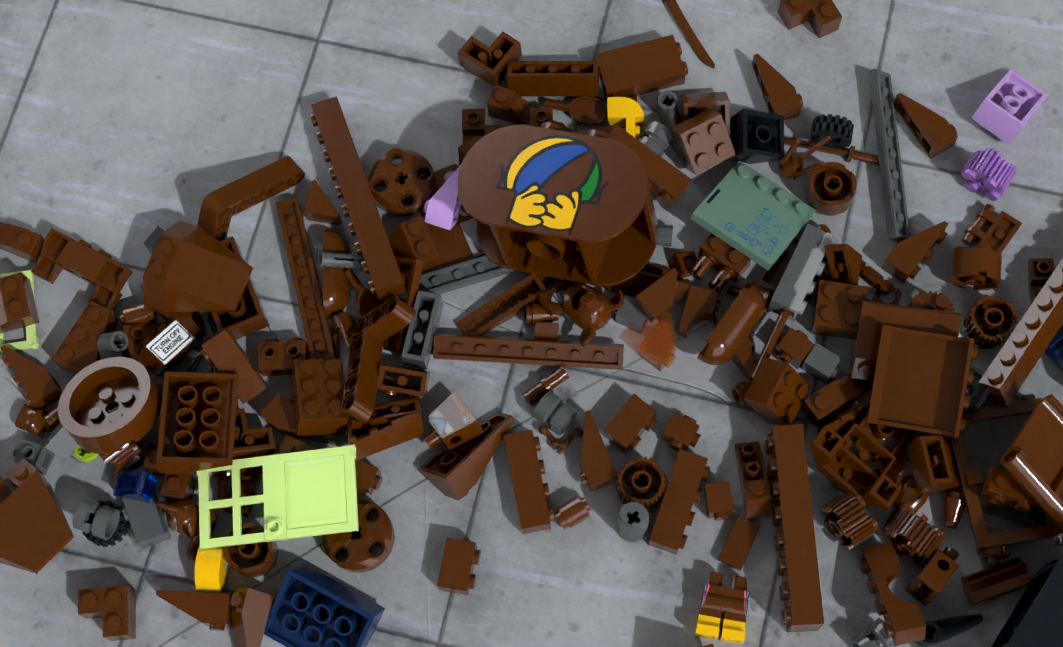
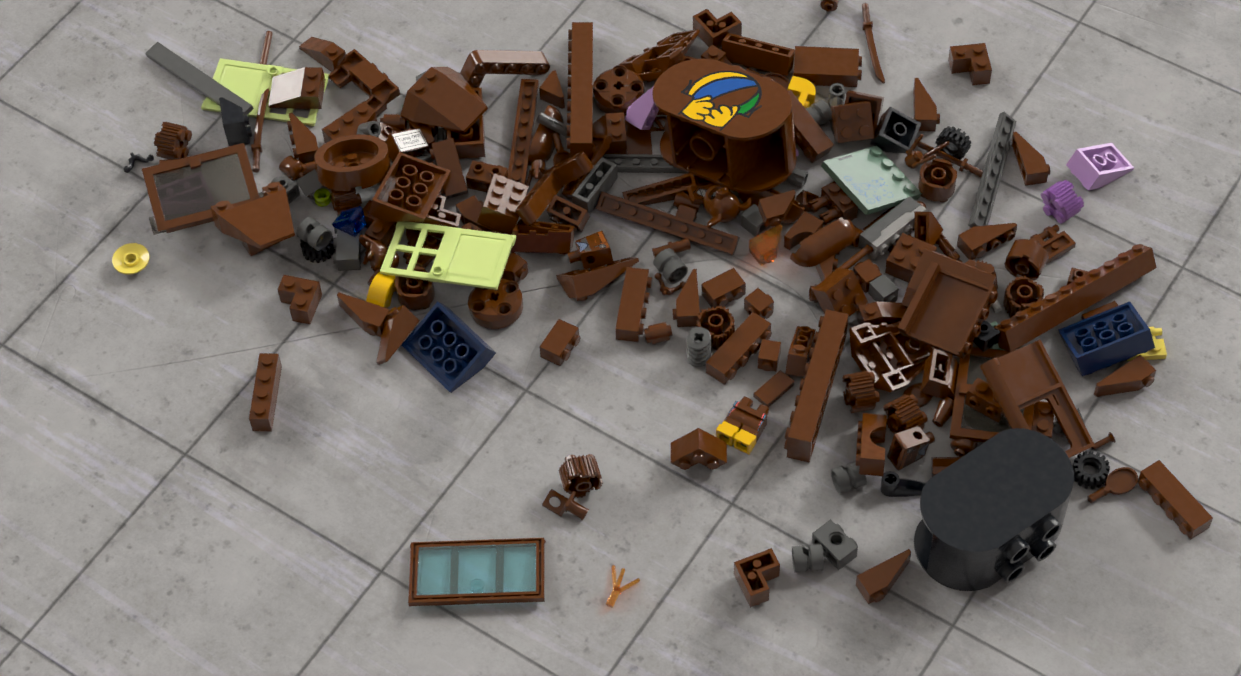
camera: 15 degrees right, 15 degrees down
(440, 118) = (661, 57): none -> reddish brown wedge

